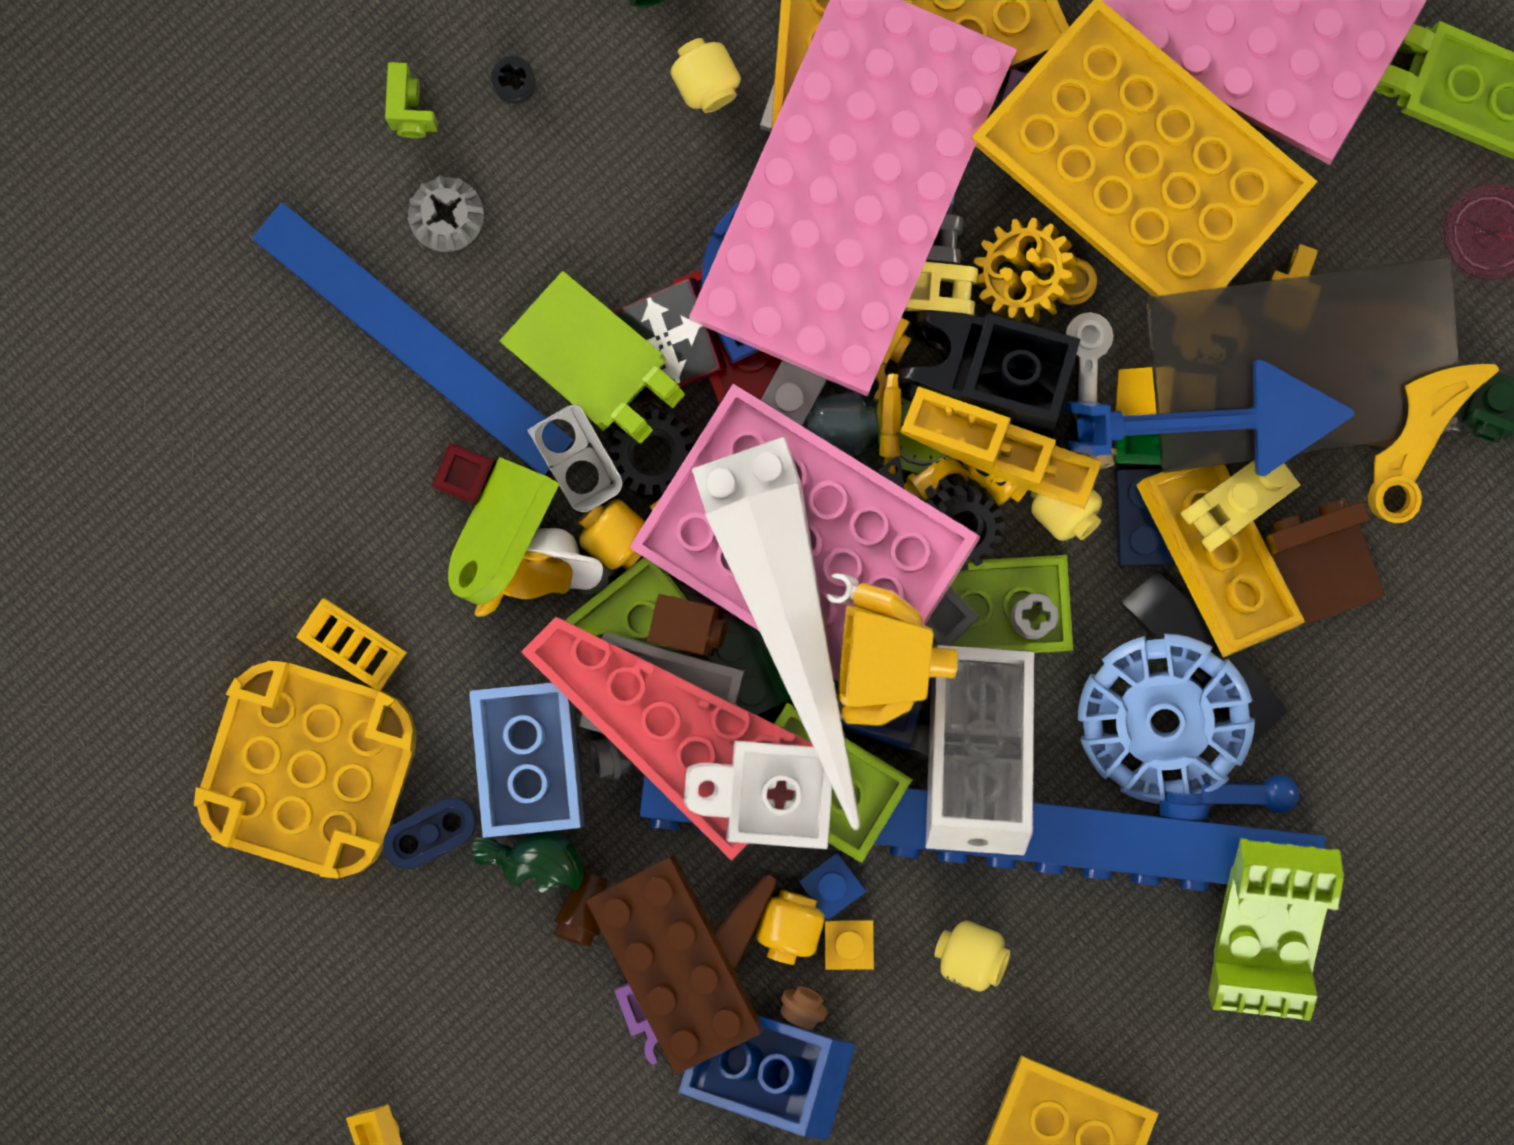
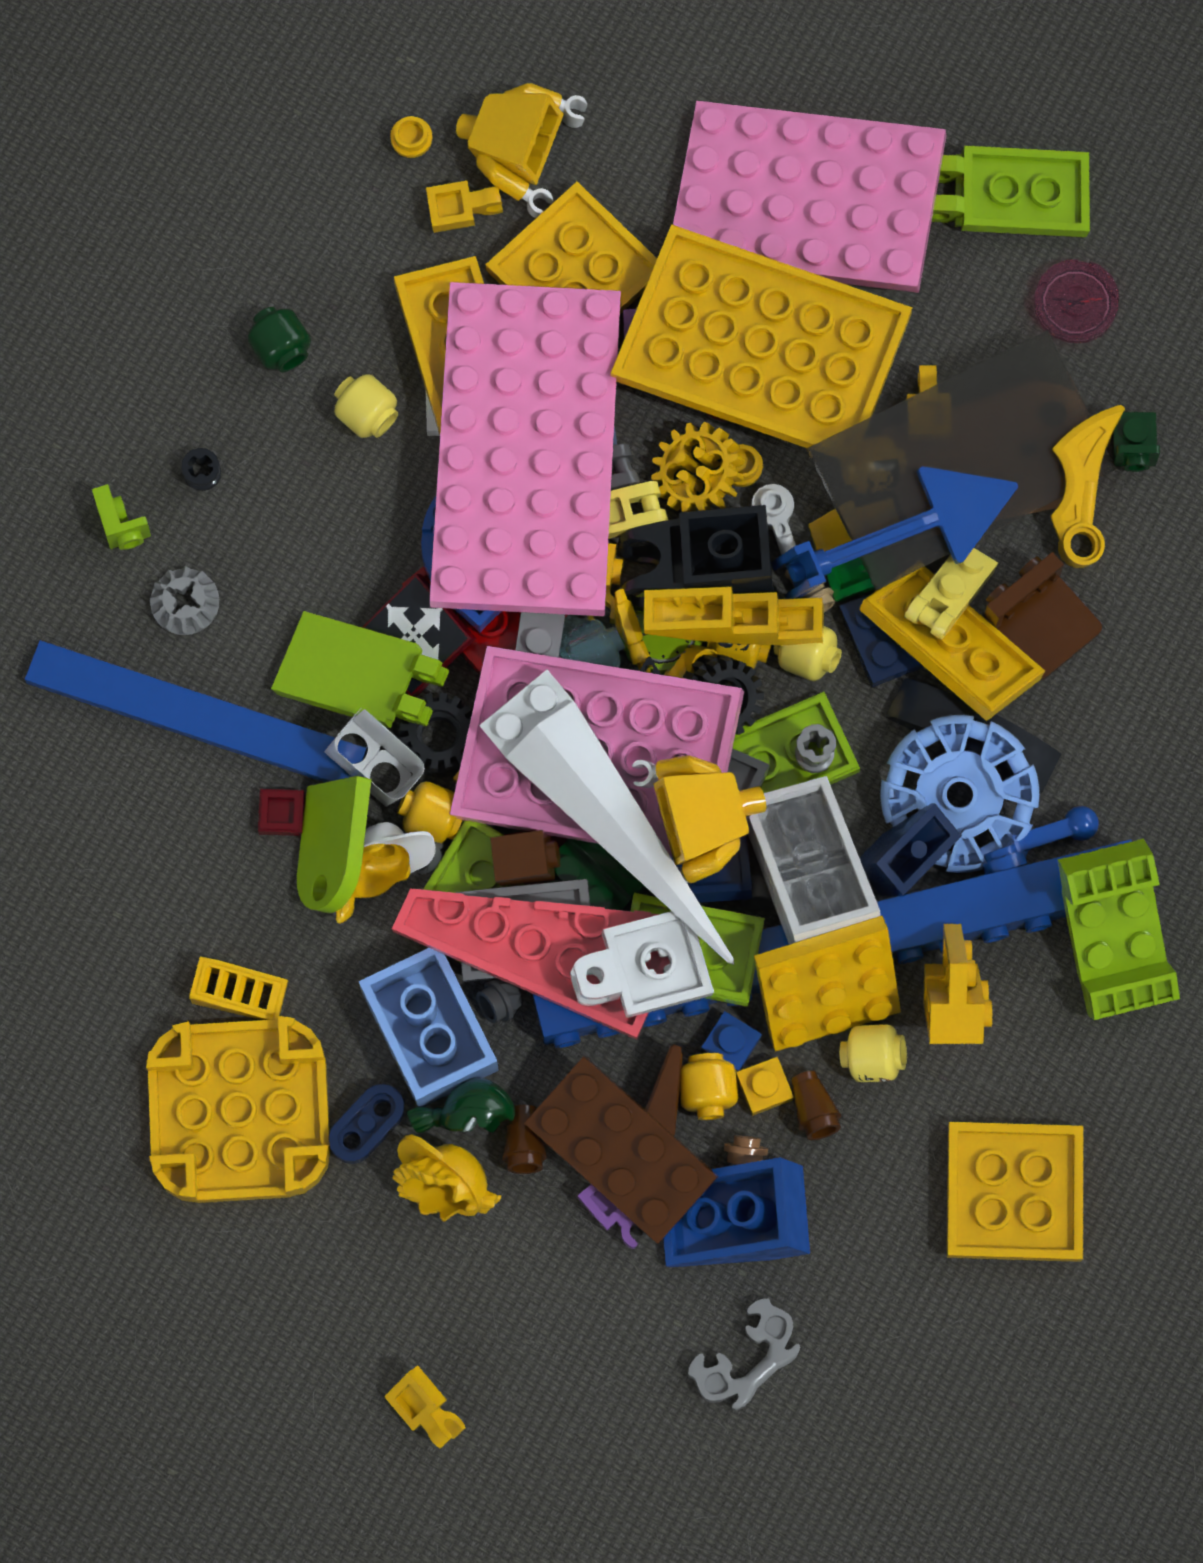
camera: 25 degrees left, 10 degrees down
(485, 923) = (442, 1179): none -> yellow hair
(891, 987) = (814, 1107): none -> reddish brown cone
(951, 875) = (828, 983): none -> yellow plate
(1079, 934) = (954, 994): none -> yellow brick
(1088, 761) = (908, 851): none -> dark blue slope

